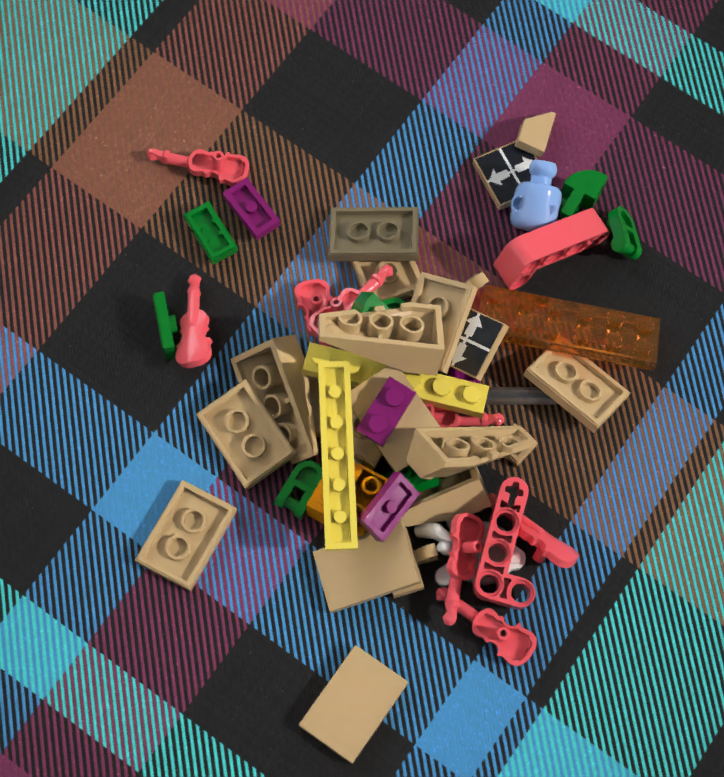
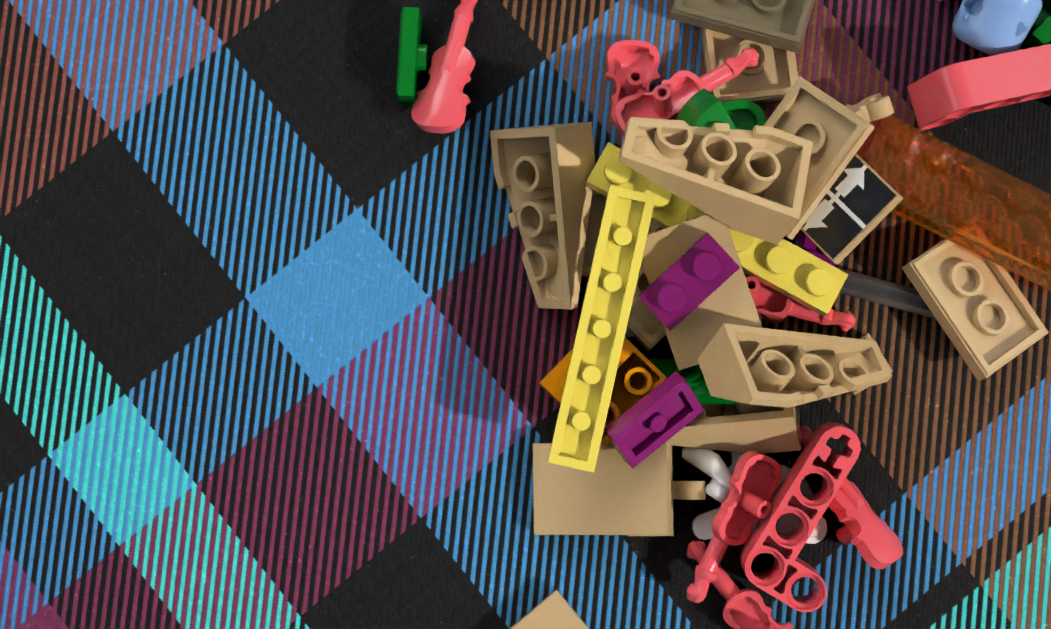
camera: 20 degrees right, 15 degrees up
(186, 535) = (365, 371): tan tile -> none
(246, 434) = (484, 249): tan tile -> none
(304, 479) = (552, 336): green plate -> none

